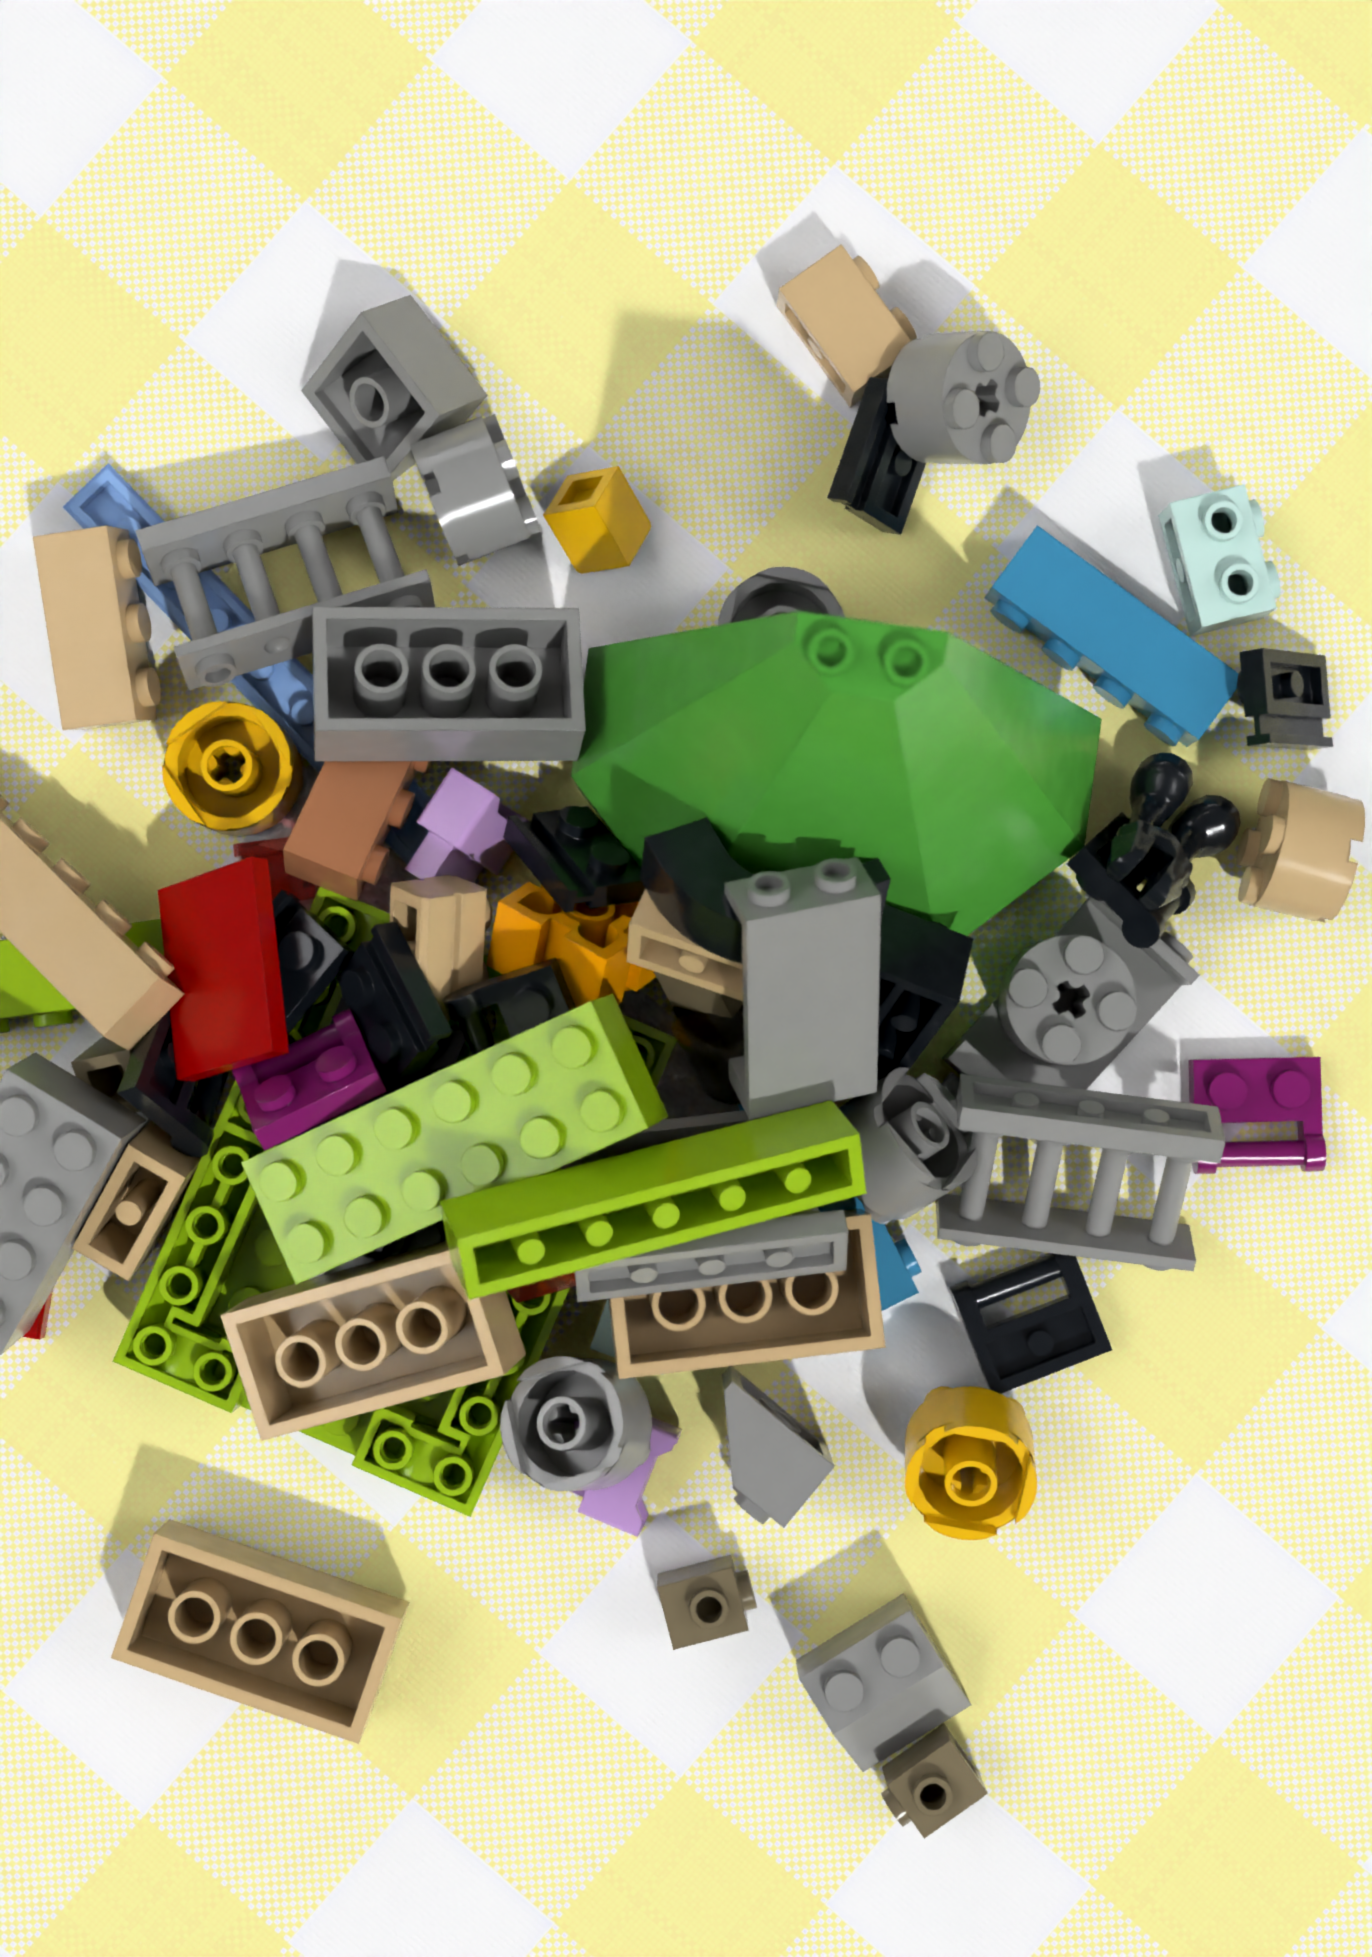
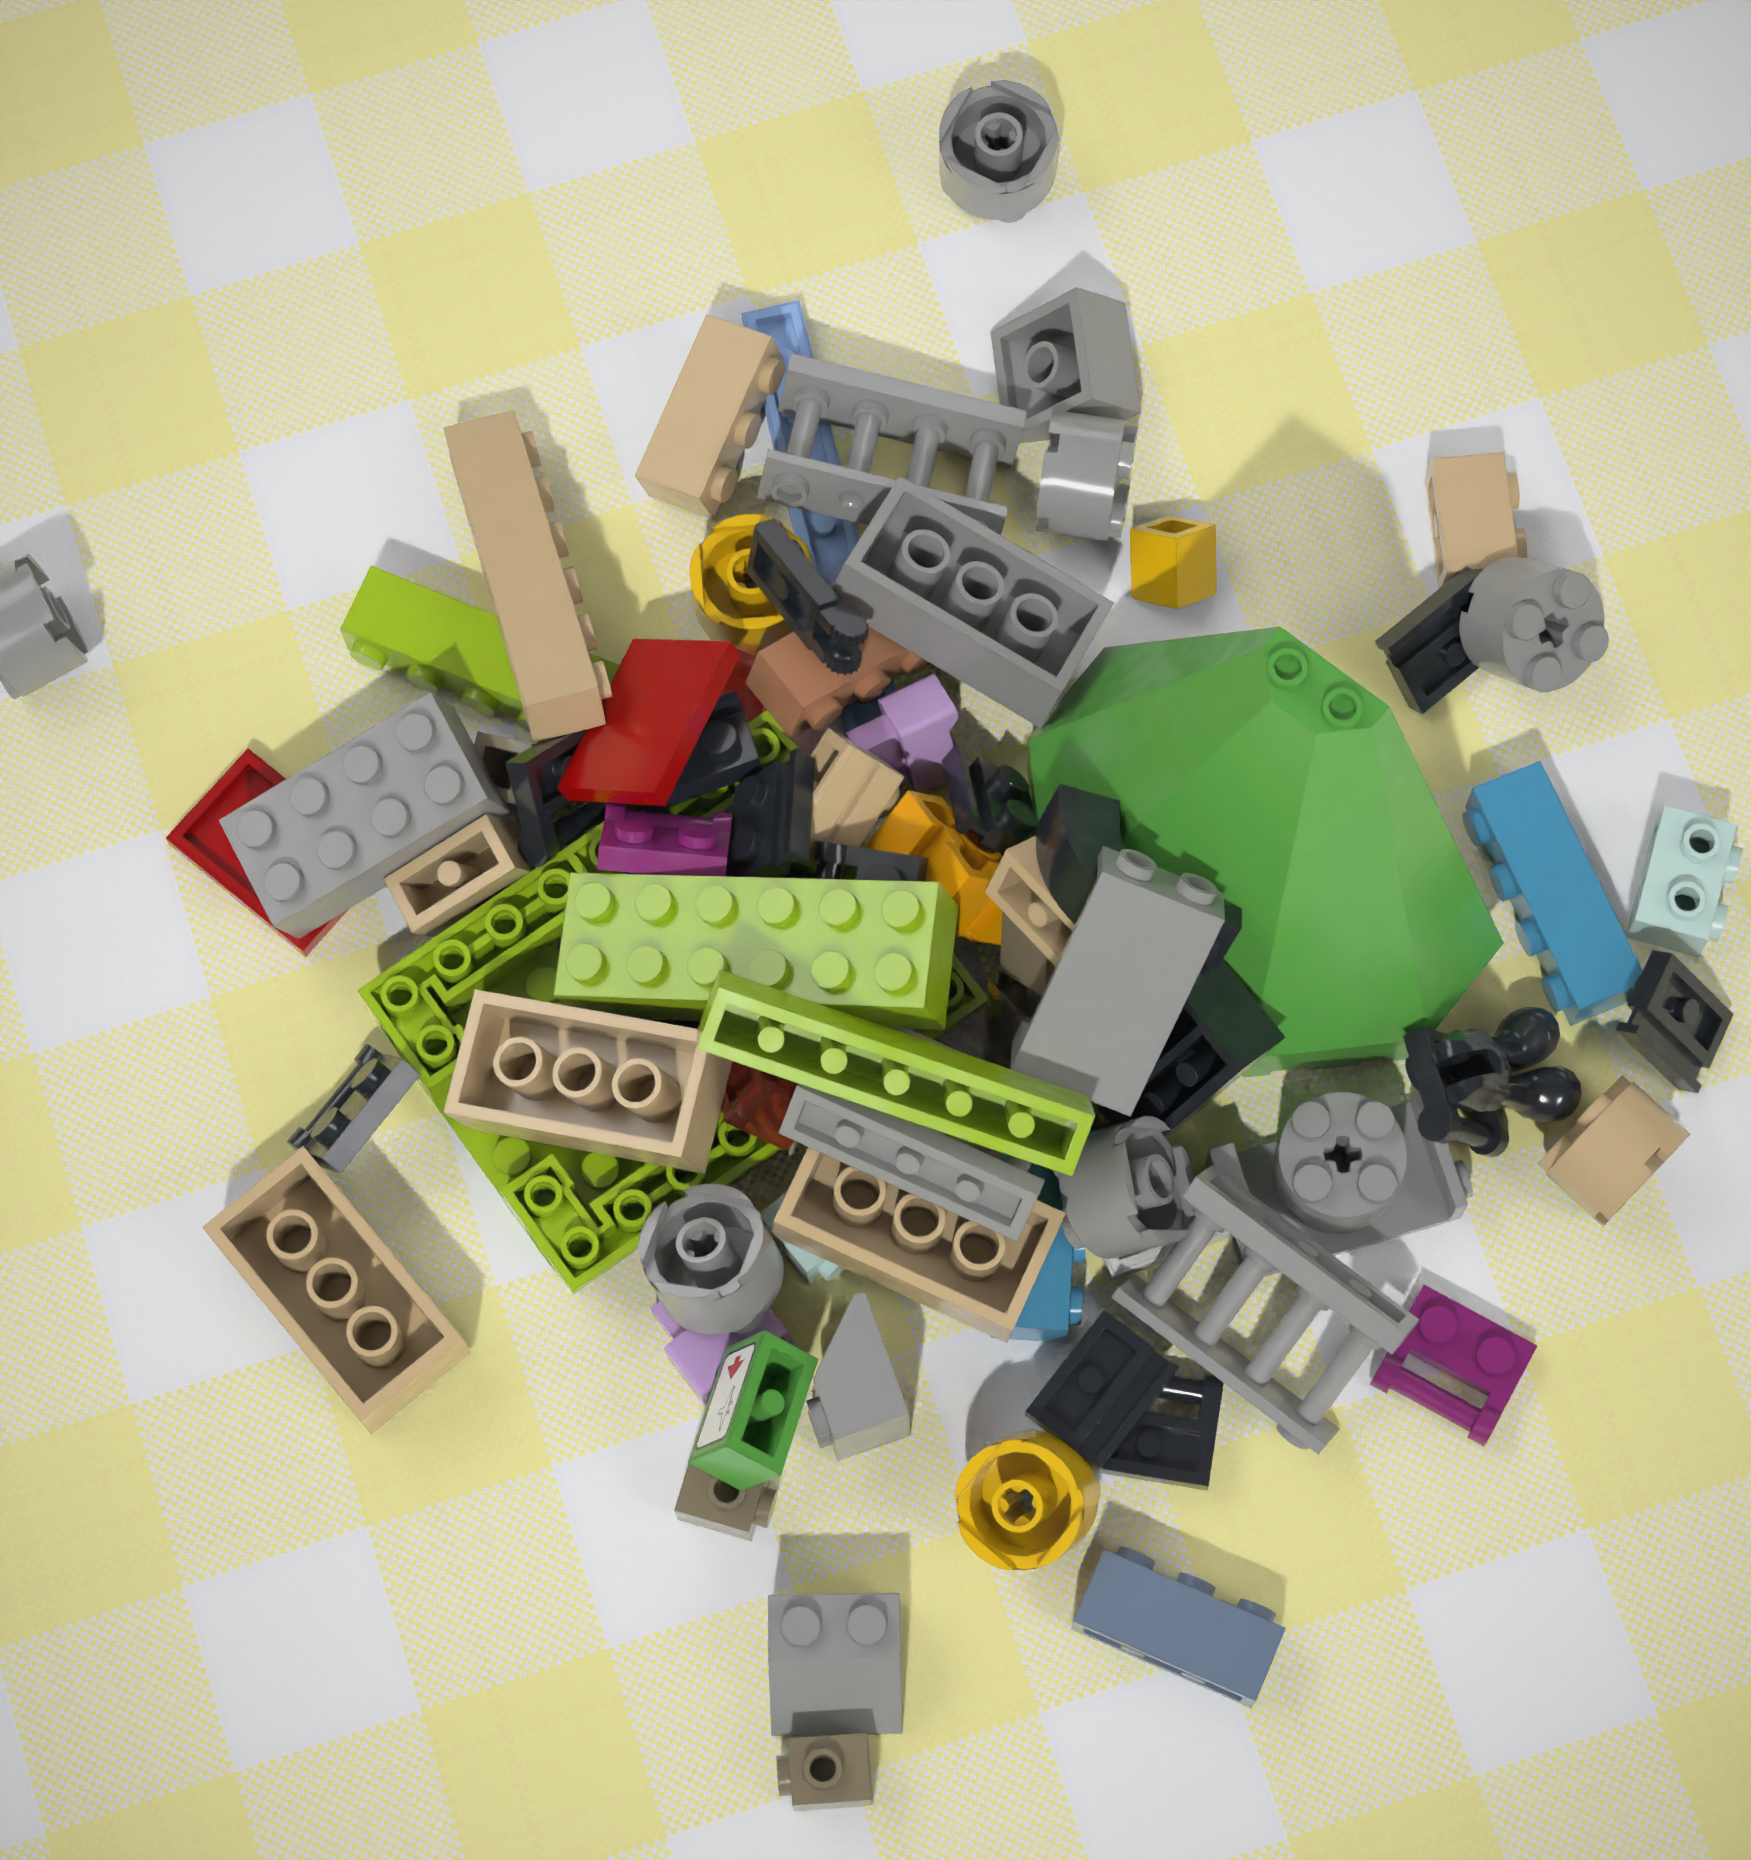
camera: 35 degrees right, 15 degrees down
(173, 192) = (998, 150): none -> light grey brick
(177, 1462) = (355, 1109): none -> plate
(297, 774) = (806, 599): none -> black hinge
(696, 1539) = (753, 1411): none -> bright green brick
(978, 1328) = (1101, 1390): none -> black plate
(1155, 1483) = (1179, 1625): none -> sand blue brick

